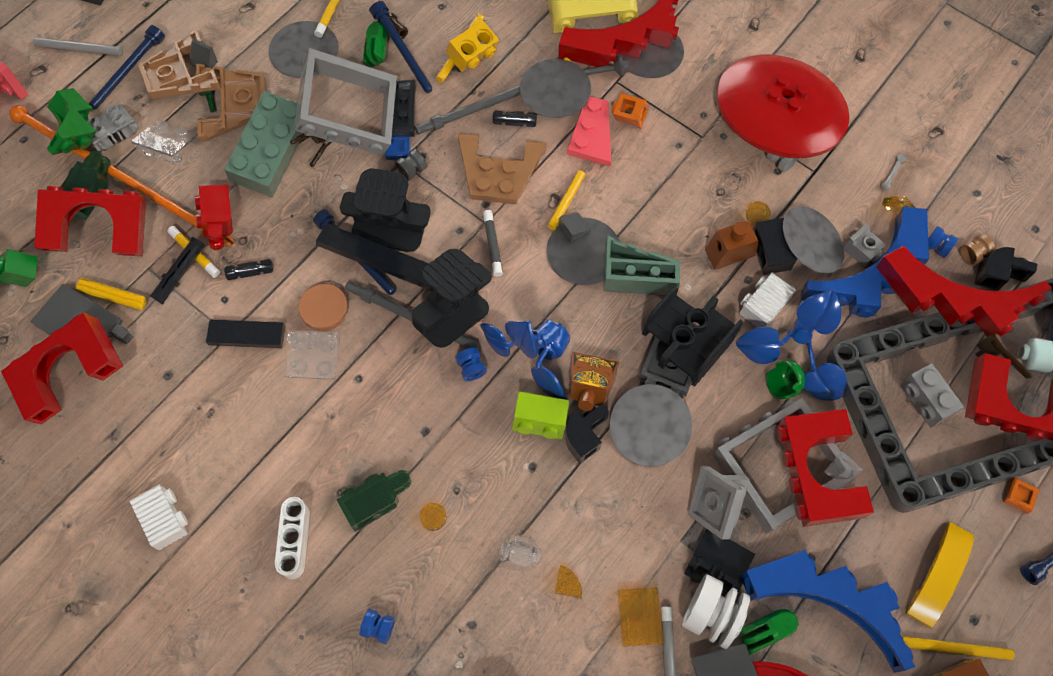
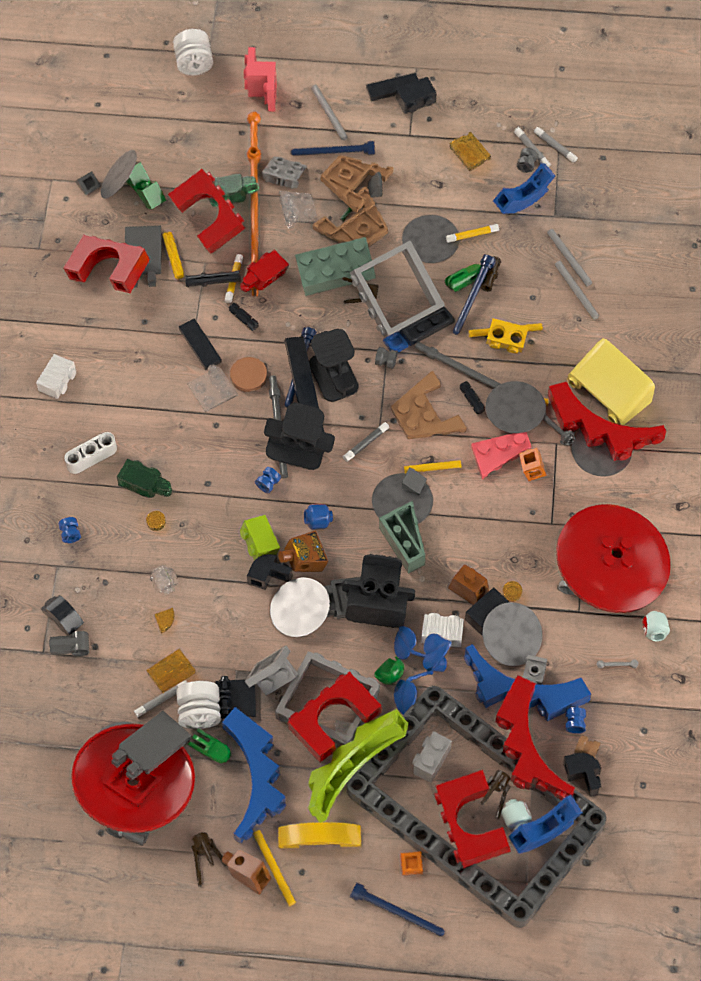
camera: 60 degrees right, 5 degrees down
(72, 117) = (259, 158): green arch -> none
(527, 341) = (309, 503): blue plant -> none
(876, 115) = (656, 626): none -> light aqua head
(893, 519) = (348, 759): none -> lime arch
(897, 202) = (588, 676): clear yellow tile -> none

